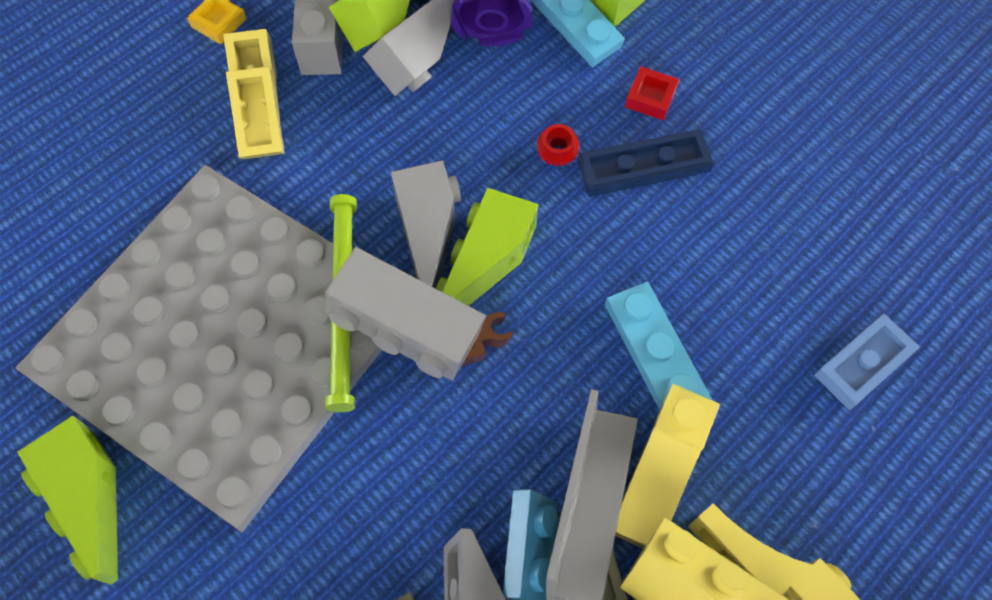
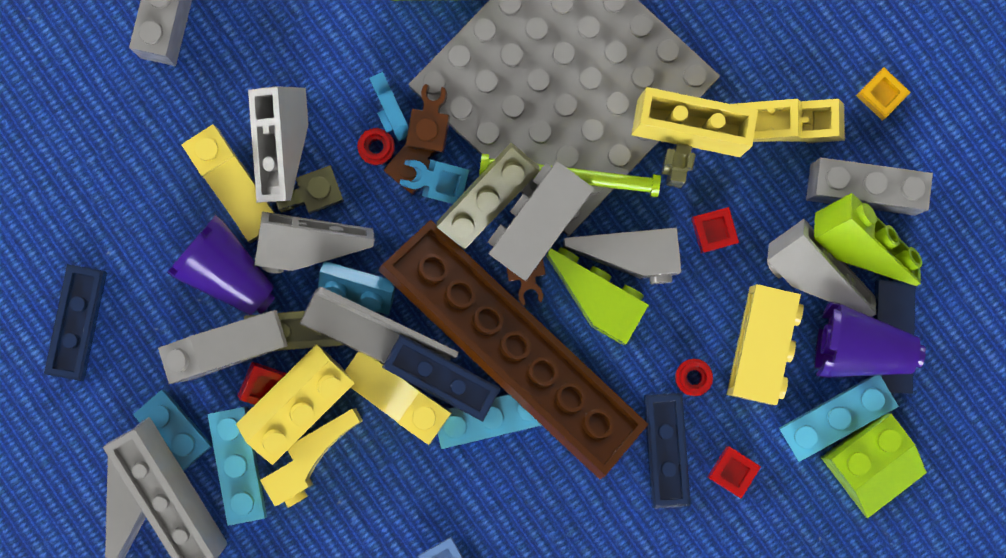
camera: 95 degrees right, 20 degrees up
(261, 165) = (694, 122): none -> light yellow brick
(278, 542) = (391, 115): none -> dark azure plate
(295, 485) = (428, 126): none -> reddish brown plate
(312, 185) = (677, 164): none -> olive plate
(315, 552) = (371, 136): none -> red plate
(350, 506) = (397, 169): none -> reddish brown plate
(367, 463) = (440, 181): none -> dark azure plate
(380, 391) = (488, 196): none -> plate
(387, 145) = (715, 230): none -> red plate
(508, 82) = (765, 345): none -> light yellow brick
(561, 344) = (514, 348): none -> reddish brown plate
(627, 412) = (441, 377): none -> dark blue tile

